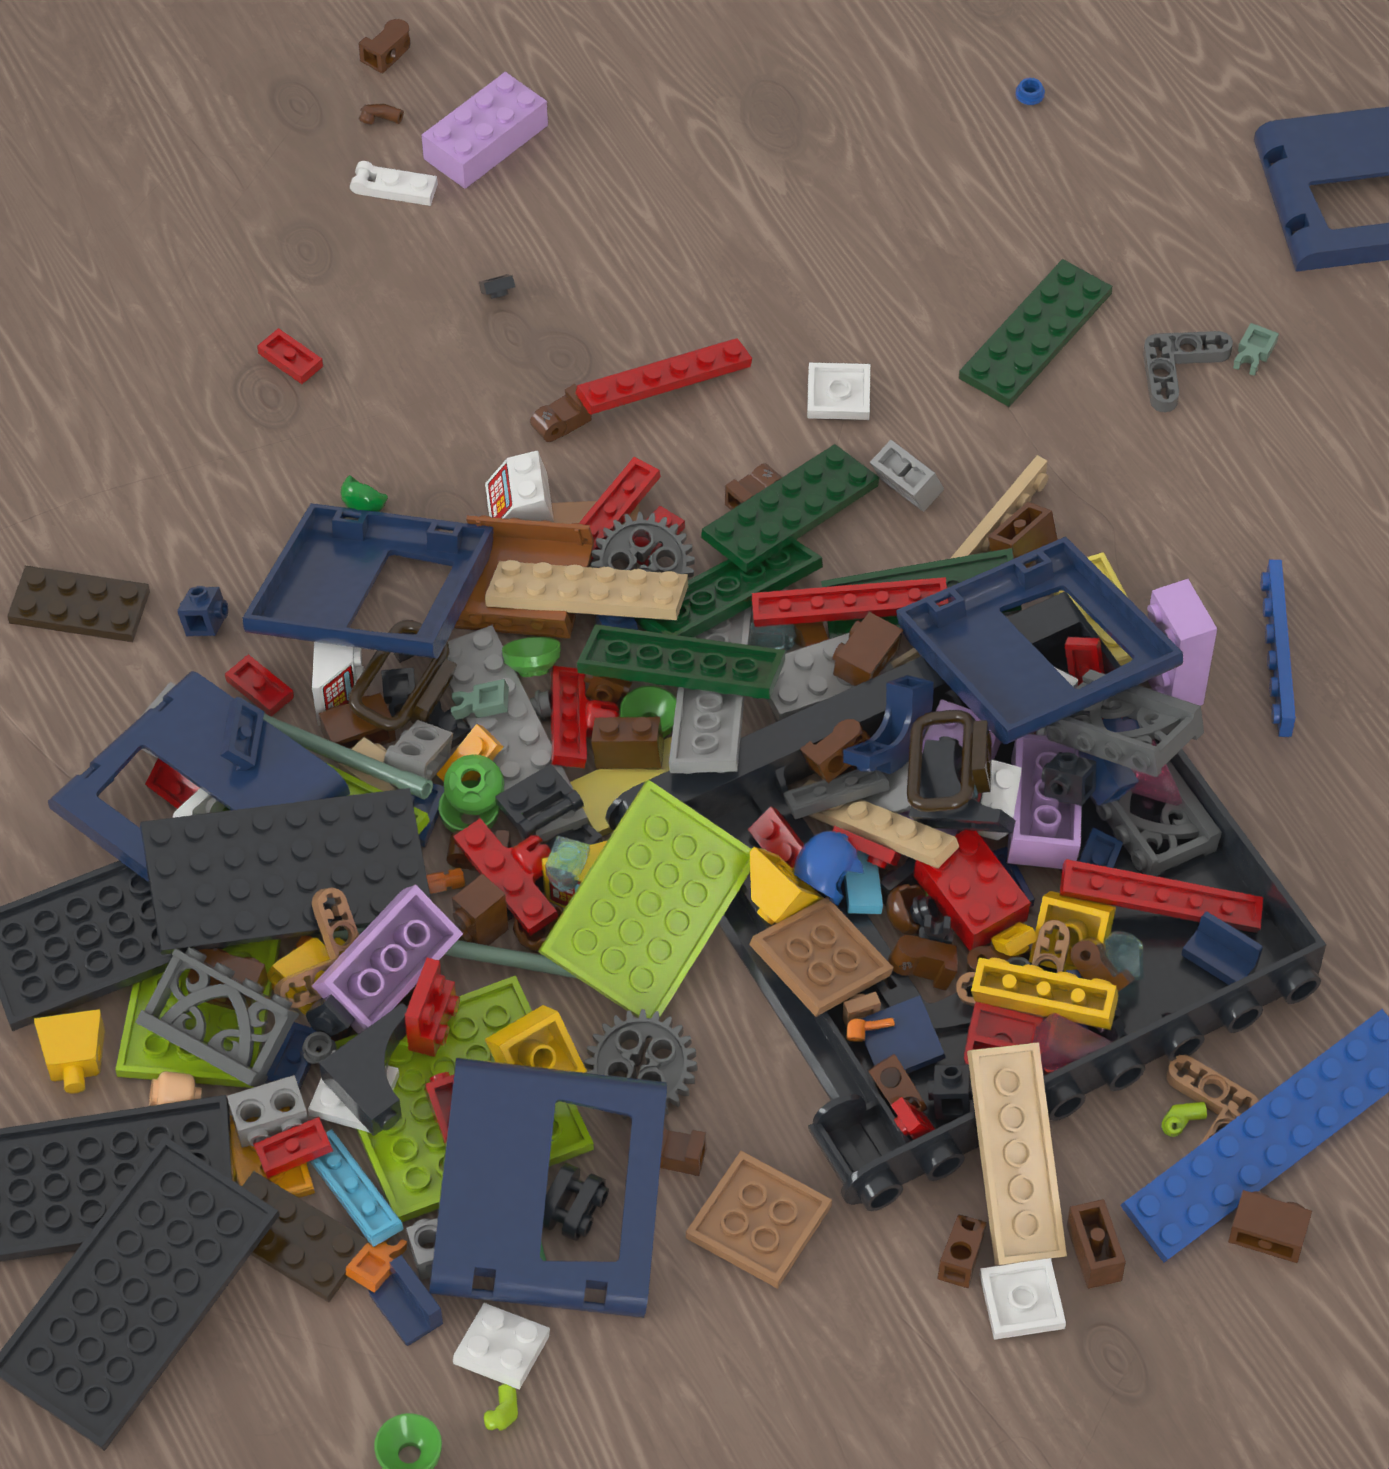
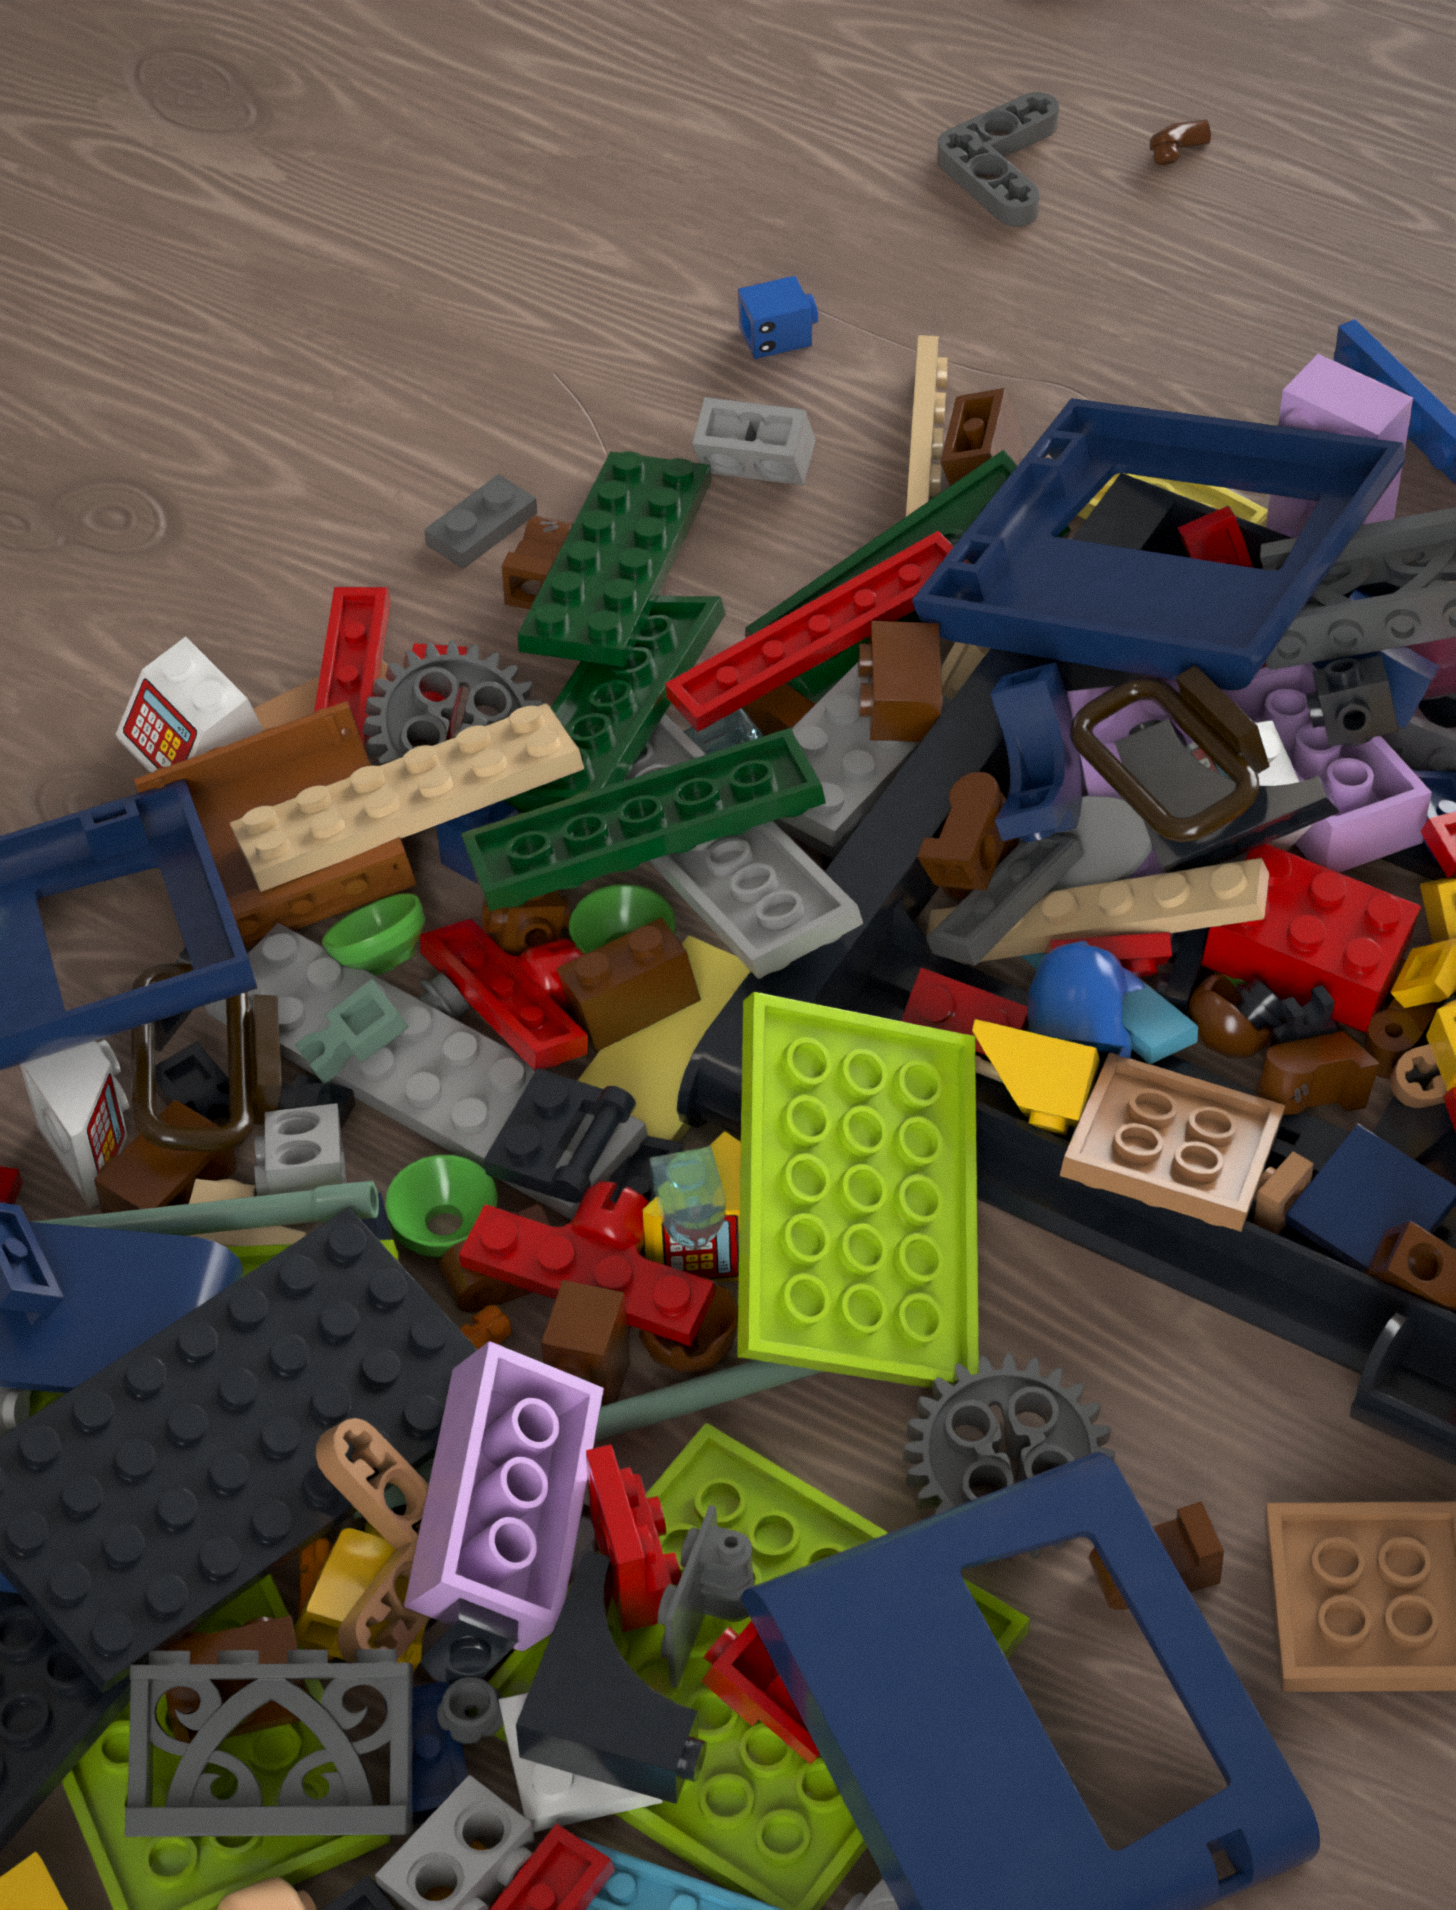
camera: 30 degrees left, 5 degrees down
(441, 1049) = (712, 1583): none -> dark grey hinge
(476, 799) = (434, 1189): bright green piece -> none
(477, 742) = (391, 1127): light orange plate -> none
(537, 1042) = (831, 1500): yellow slope -> none
(560, 416) = (173, 585): reddish brown leg -> none
(579, 1218) = (1089, 1703): black brick -> none
(663, 376) = (290, 469): red plate -> none
(743, 451) = (480, 521): none -> dark grey plate
(839, 391) = (562, 382): white plate -> none
(857, 1027) = (1303, 1223): orange hand -> none
(978, 405) = (776, 316): none -> blue brick
(1035, 332) = (777, 194): dark green plate -> none
(1255, 346) = (1089, 92): sand green plate -> none
(1284, 396) = (1178, 135): none -> reddish brown arm

